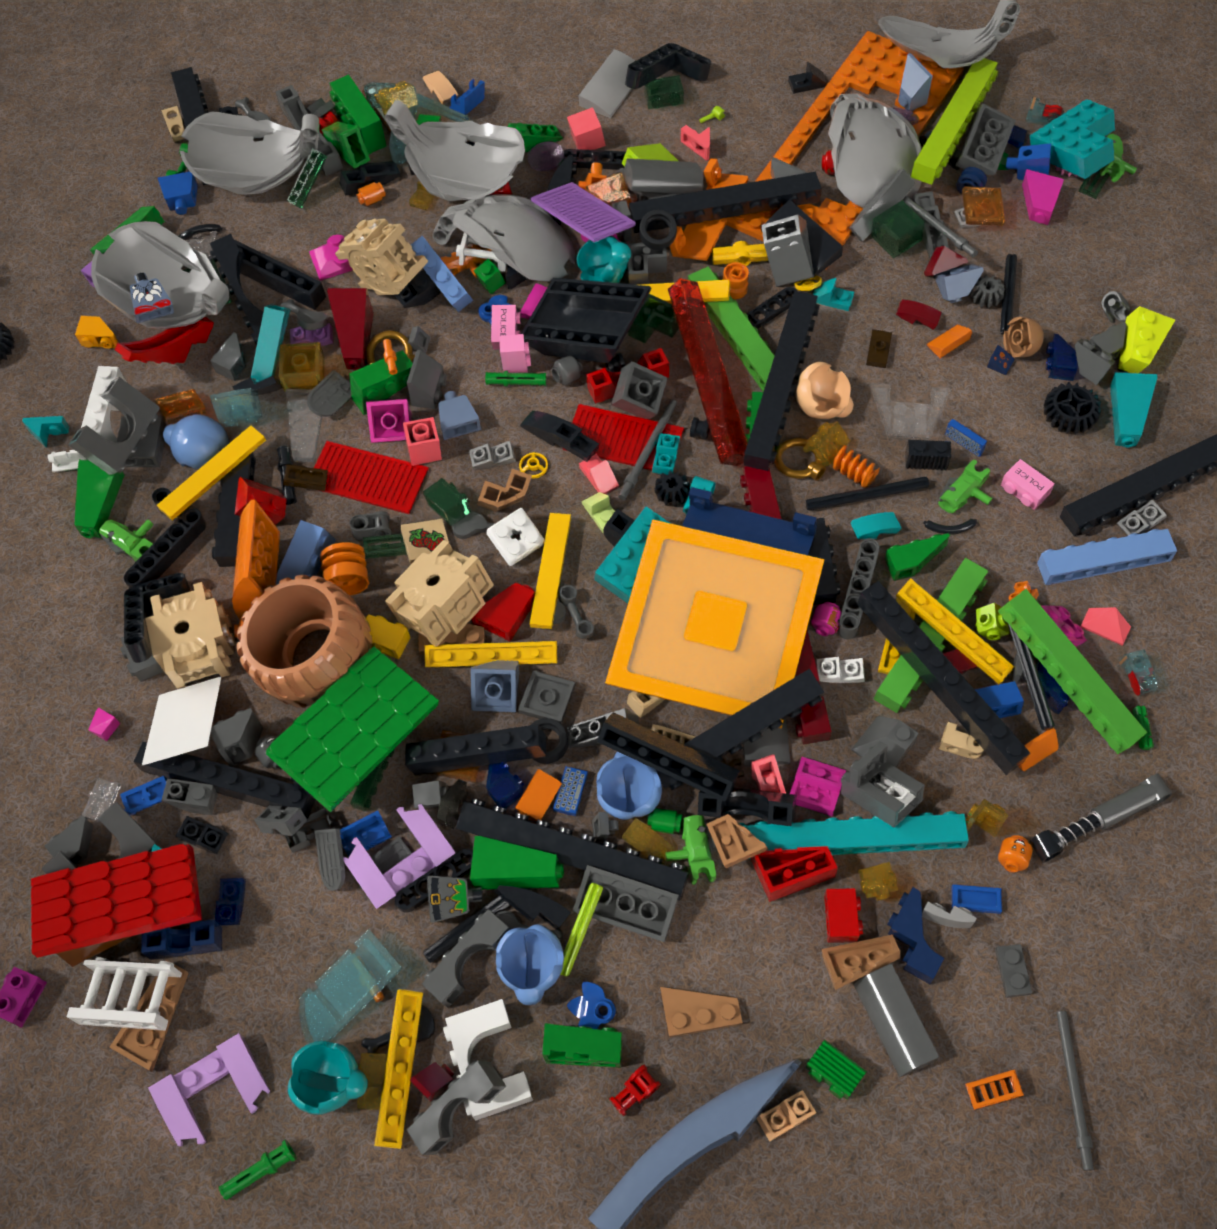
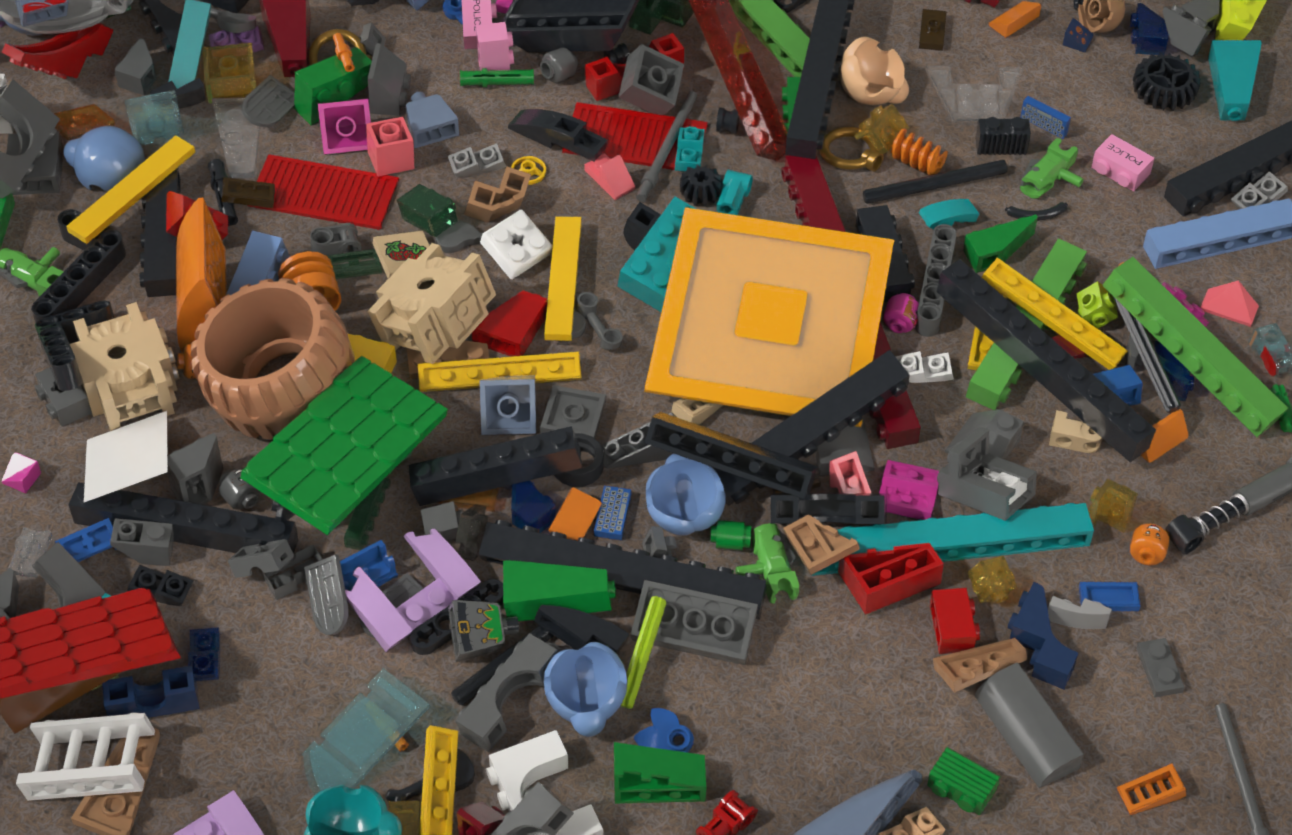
camera: 10 degrees left, 10 degrees down
(599, 509) = (614, 212): yellowish green slope -> none
(646, 840) = (710, 553): clear yellow slope -> none
(698, 1012) = (793, 735): medium nougat wing -> none
(749, 526) = (860, 220): dark blue bracket -> none

